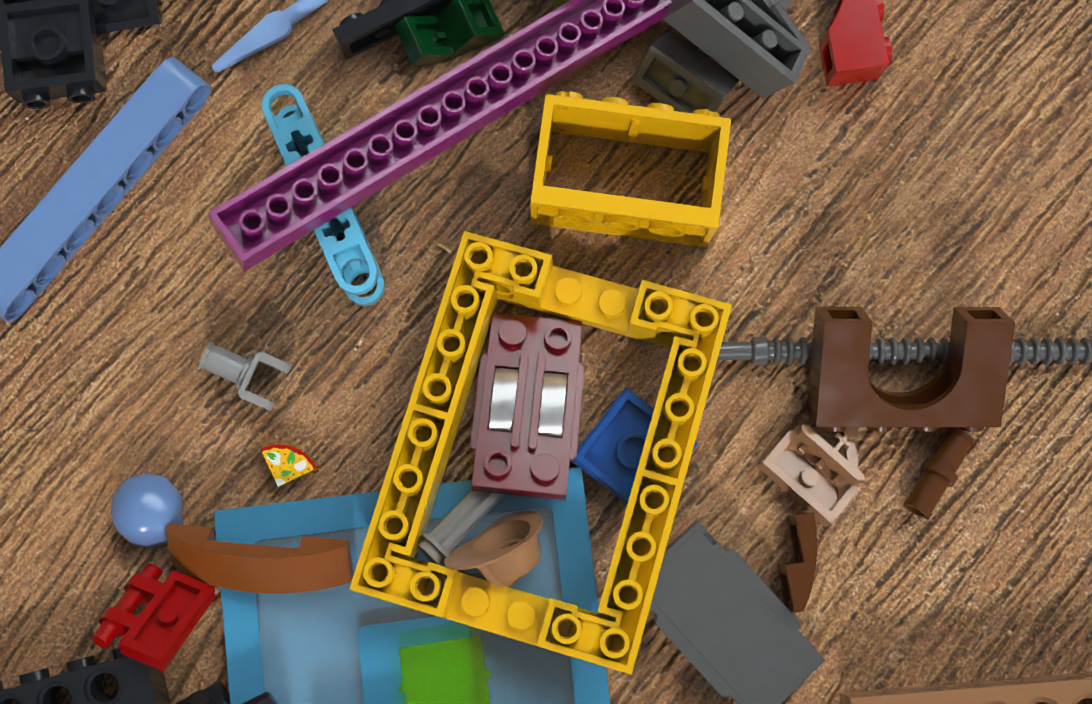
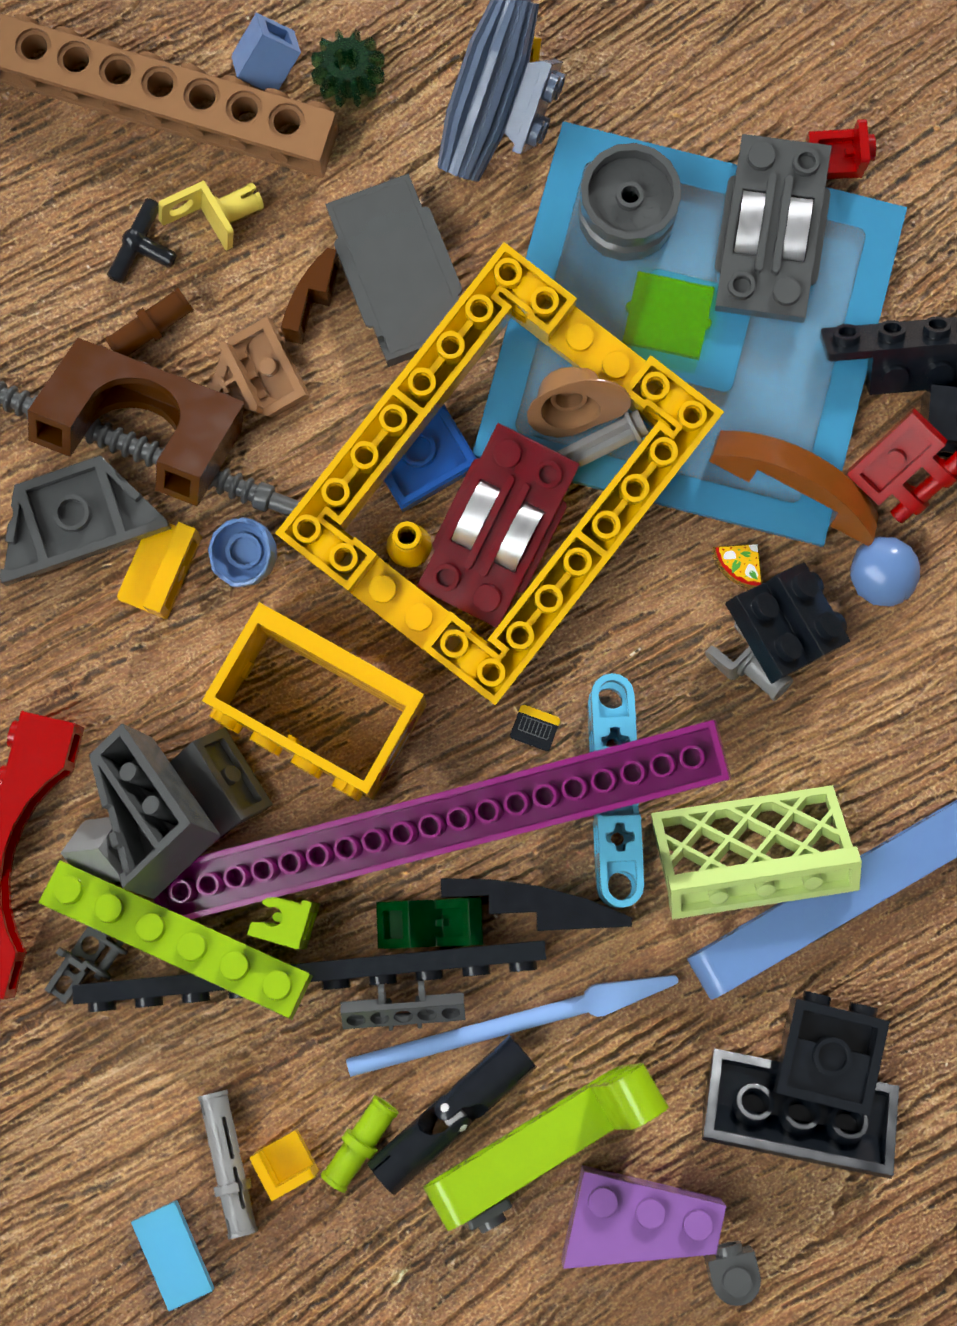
camera: 150 degrees left, 0 degrees up
(149, 171) = (761, 878): none -> yellowish green fence
(219, 418) = (788, 622): none -> black plate
(342, 83) = (552, 908): none -> black slope
(424, 240) = (535, 727): none -> black sticker
(603, 370) = (409, 554): none -> yellow cone
(755, 287) = (242, 552): none -> medium blue hair
(824, 249) = (159, 570): none -> yellow panel
(921, 614) = (218, 212): none -> light yellow bracket
(922, 263) = (74, 518): none -> dark grey wing
(988, 550) = (135, 242): none -> black piece

